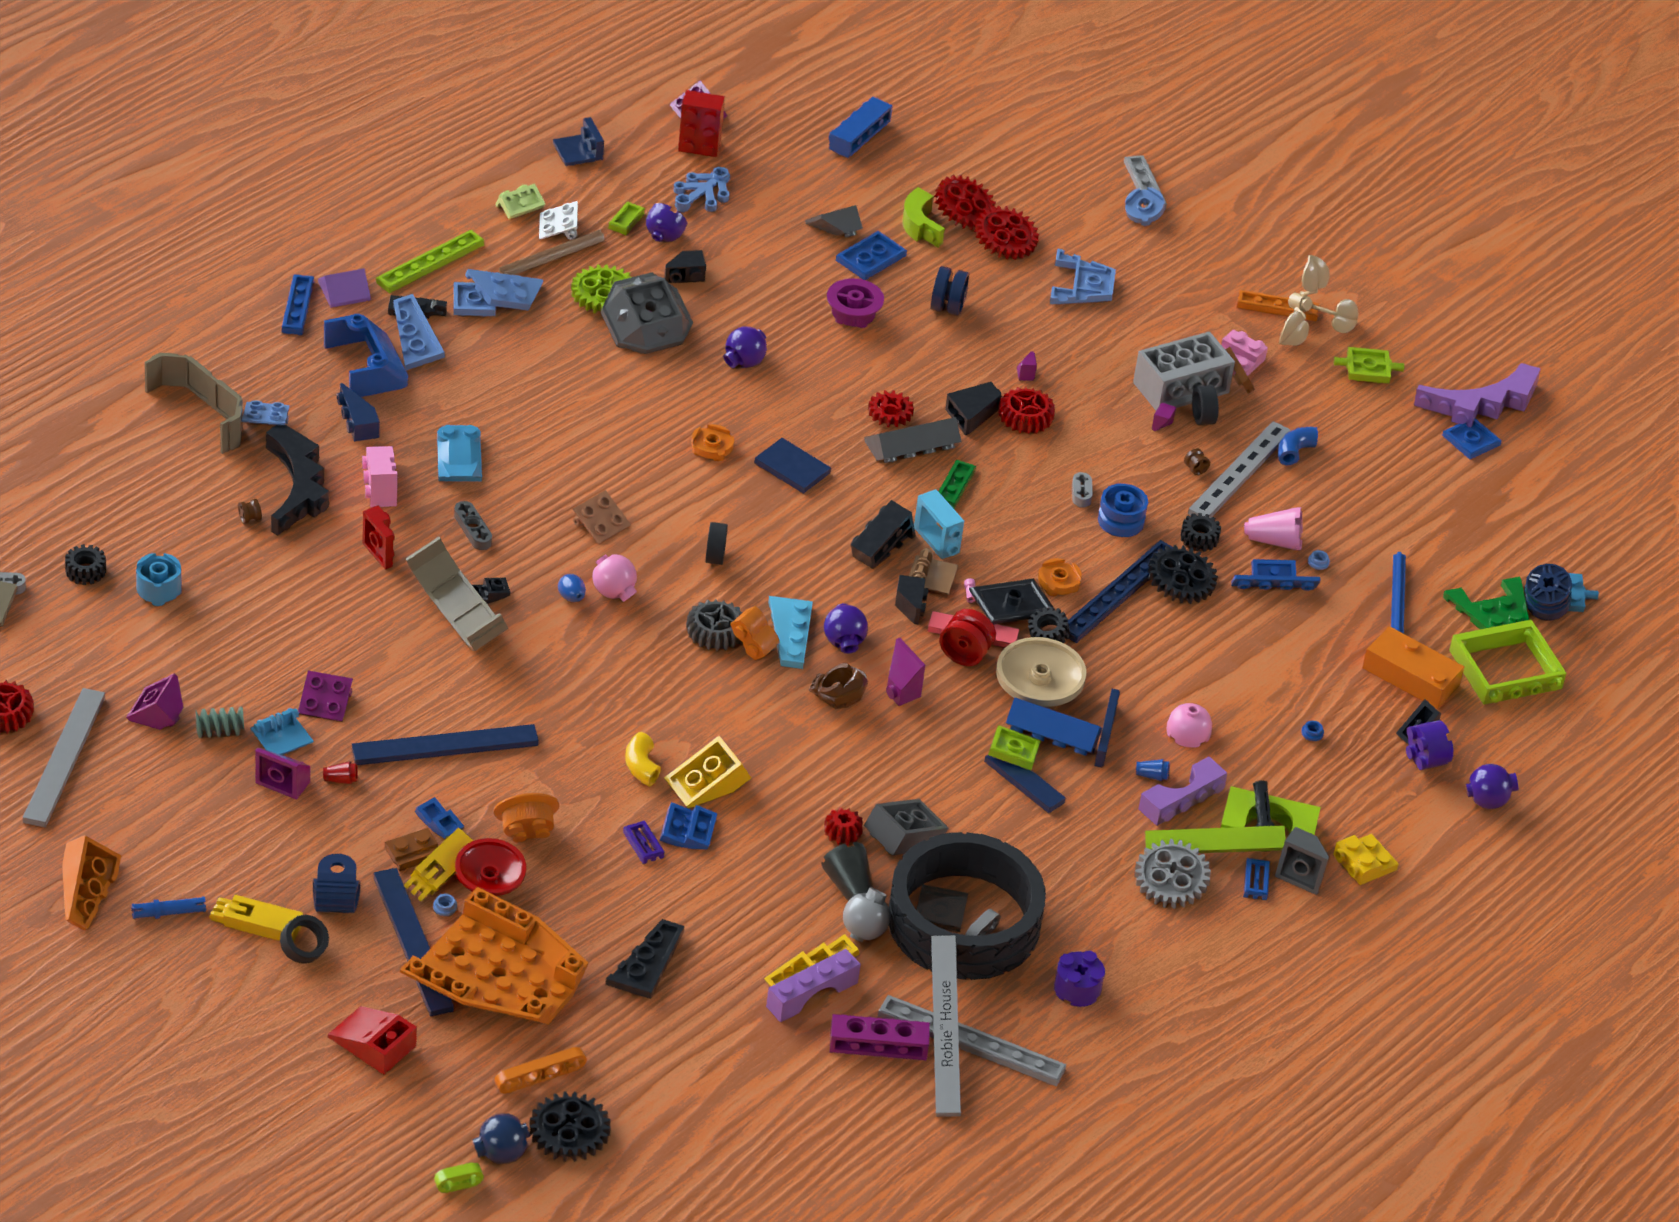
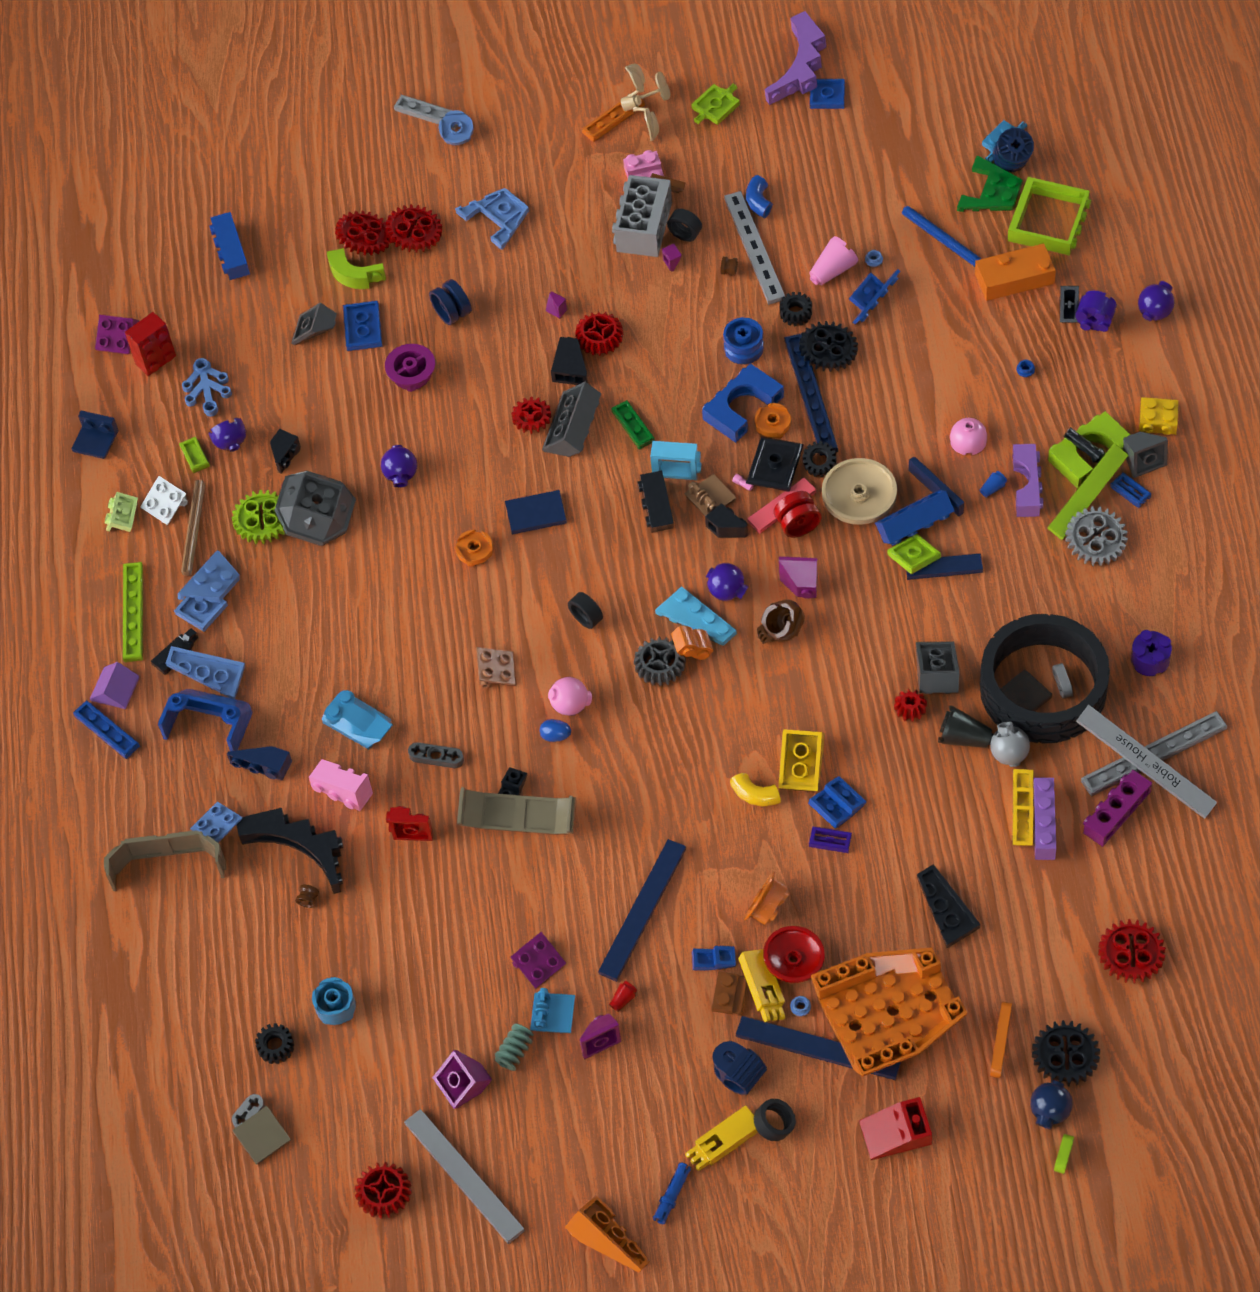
camera: 40 degrees left, 15 degrees up
(729, 1124) = (1112, 951): none -> red gear
(1079, 536) = (749, 382): none -> blue arch
(1085, 489) = (698, 352): light grey beam -> none

